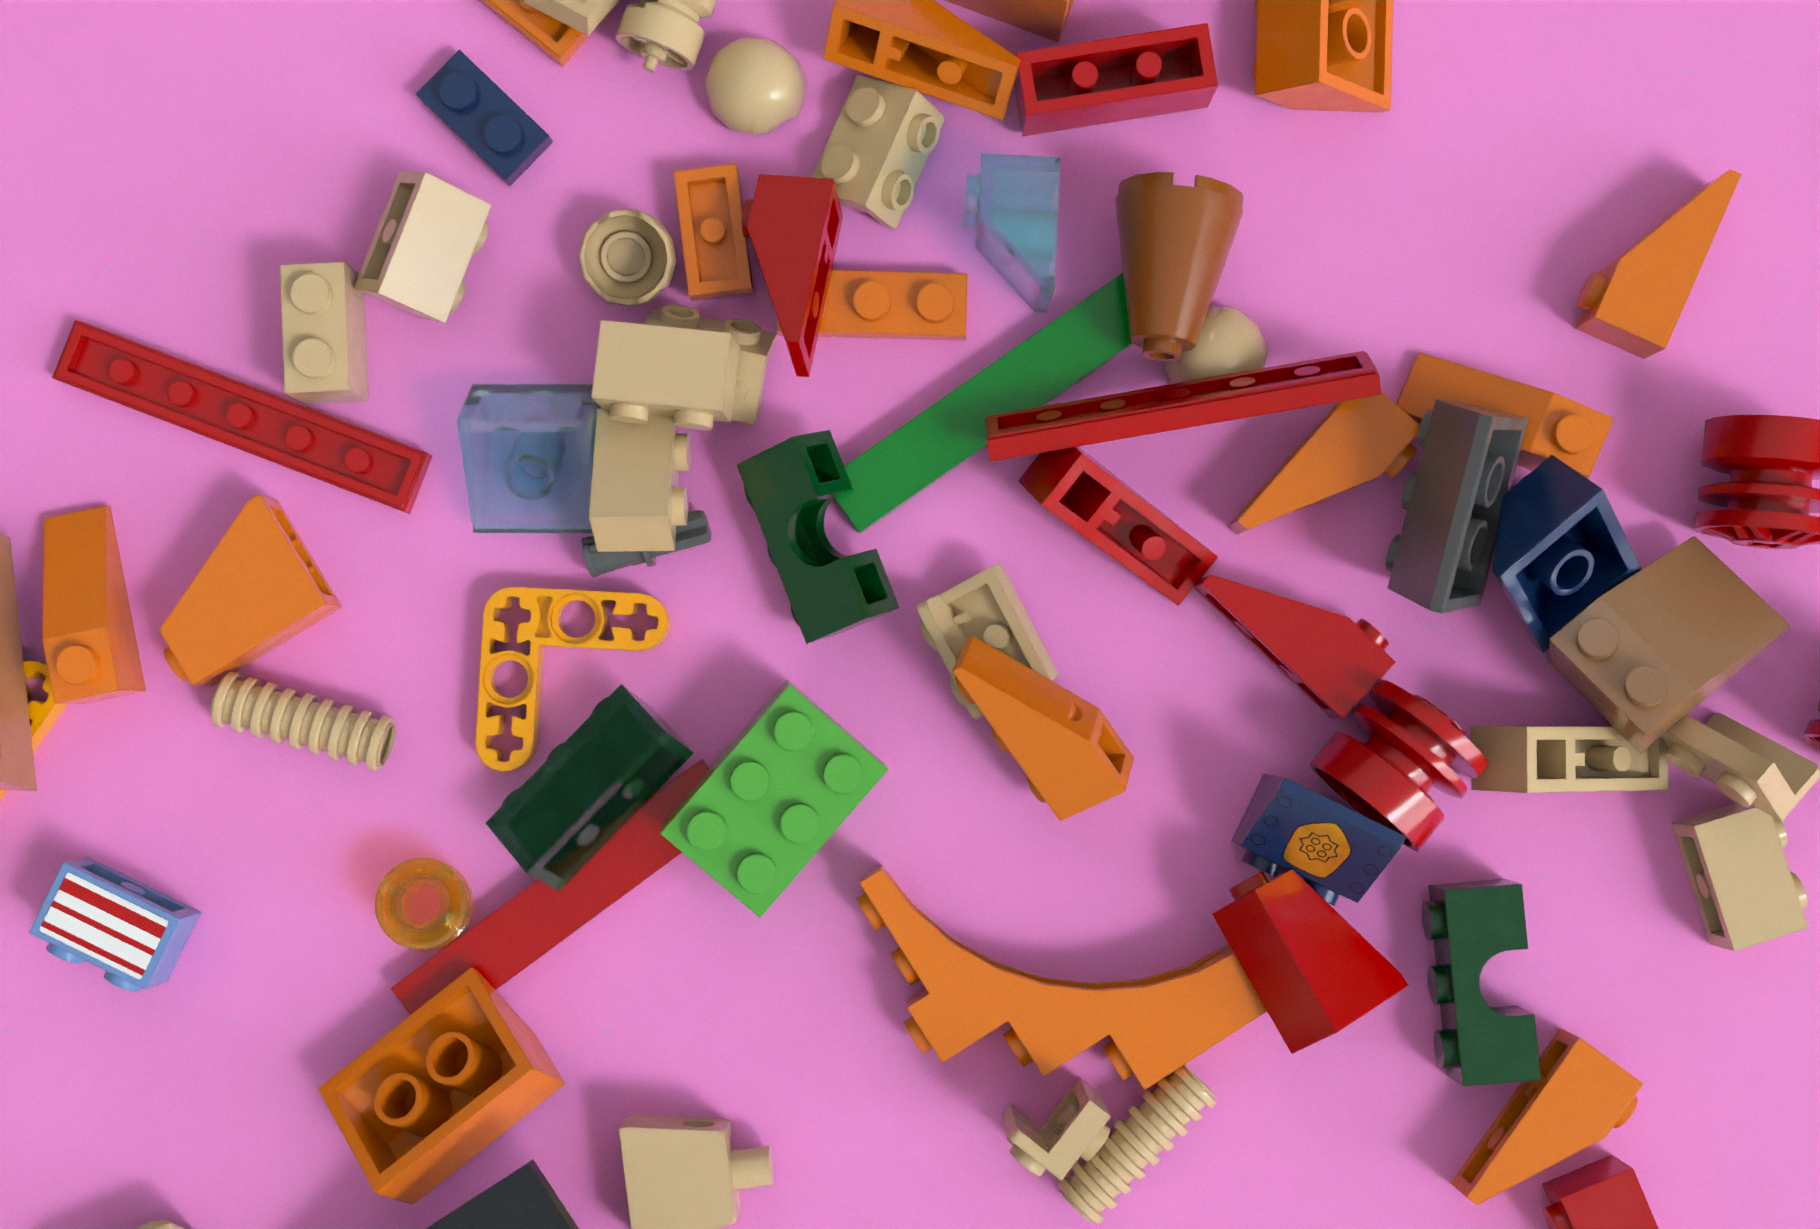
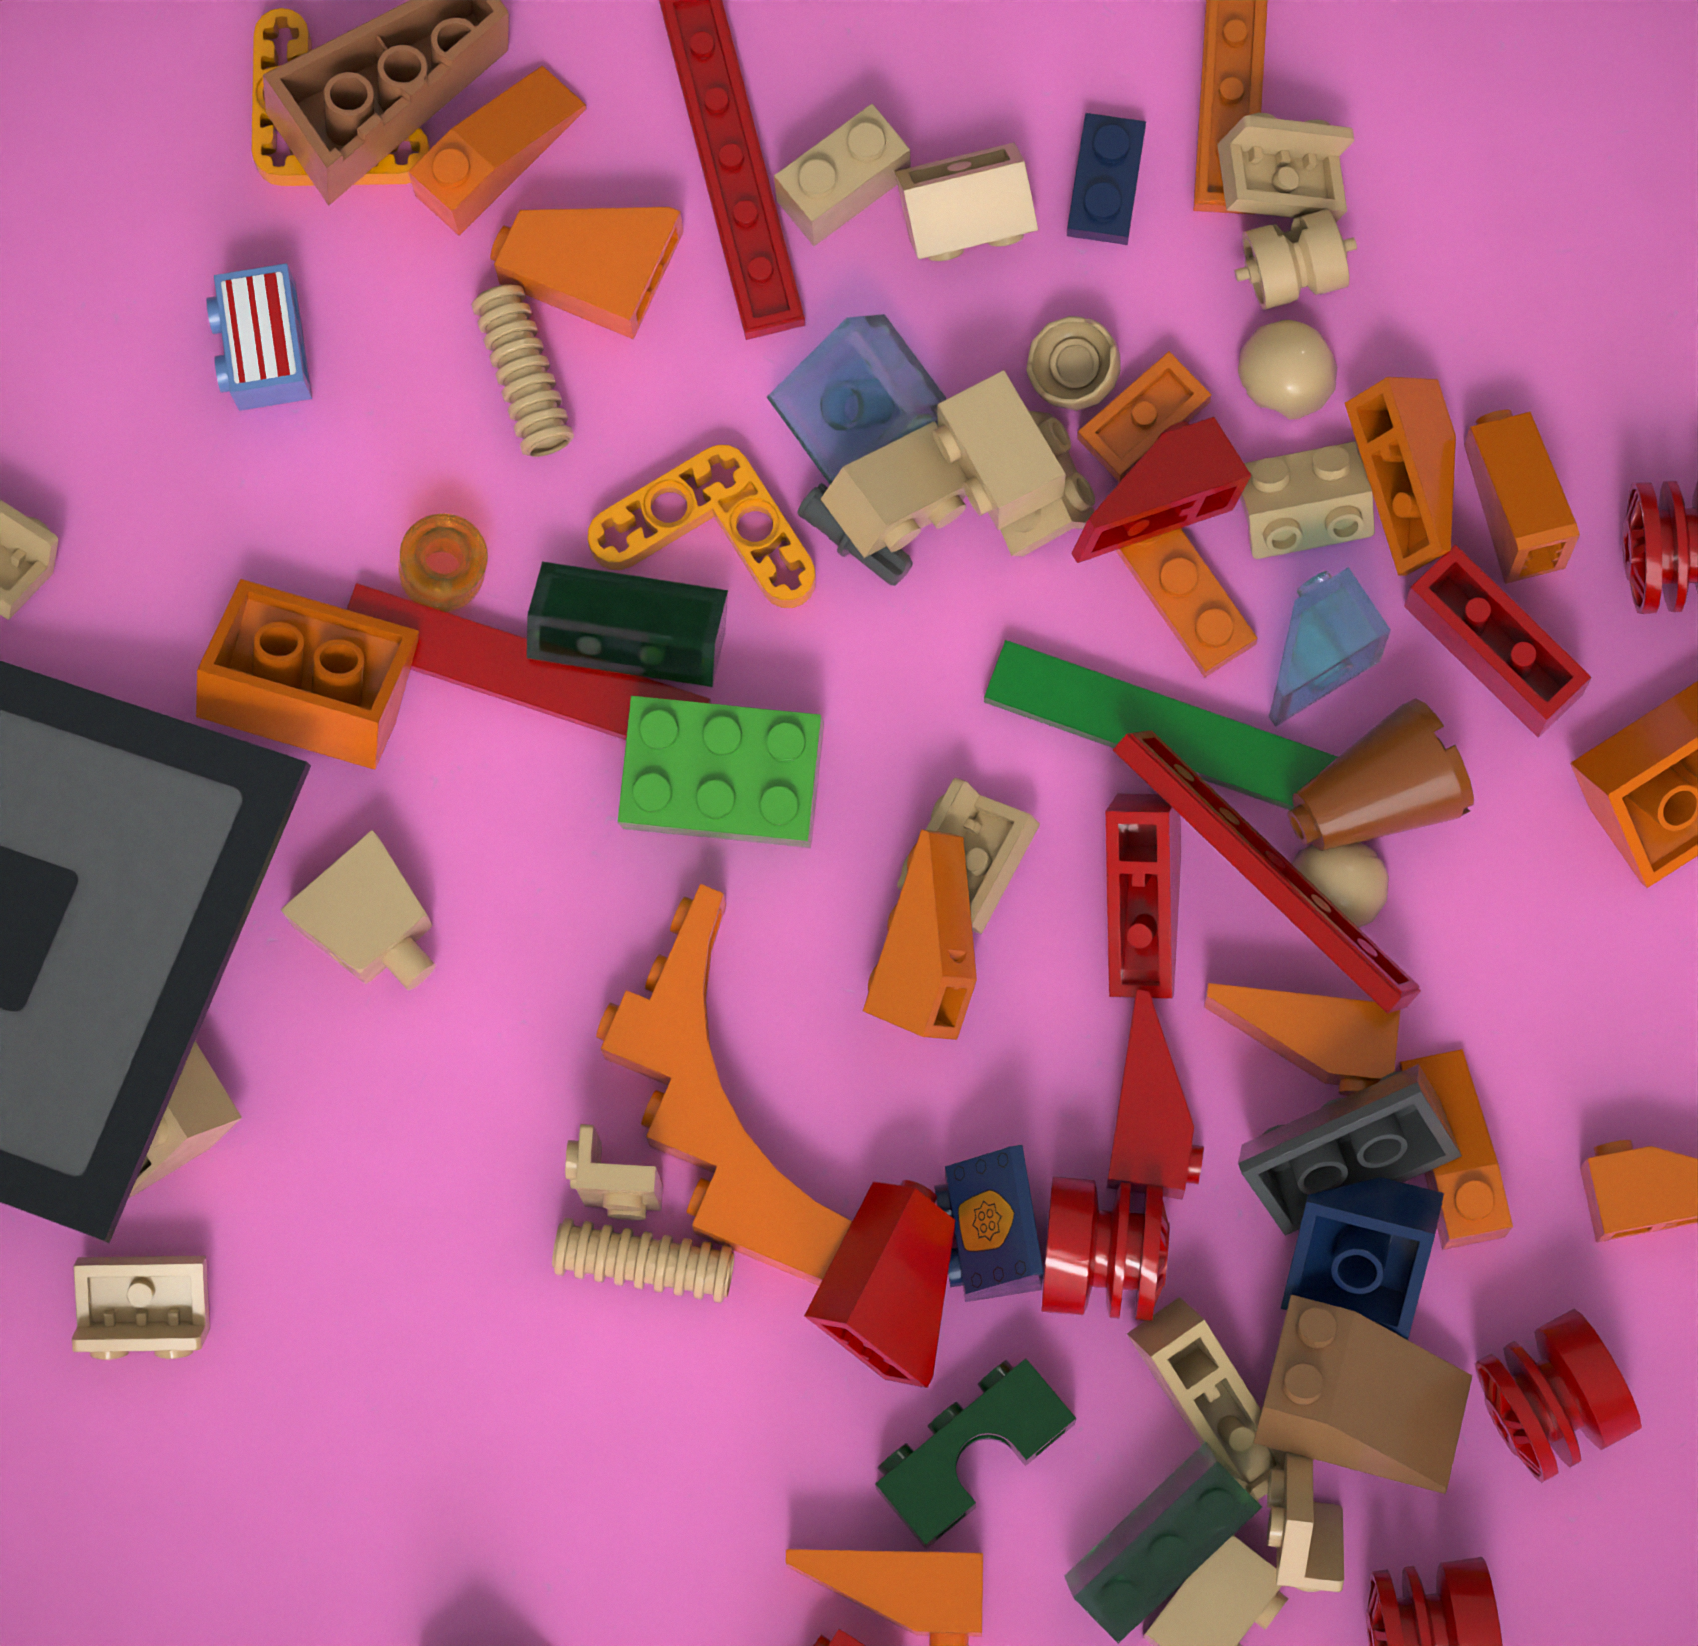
camera: 60 degrees right, 10 degrees down
(790, 496) = (973, 621): dark green arch -> none
(1670, 884) = (1162, 1542): none -> clear green brick

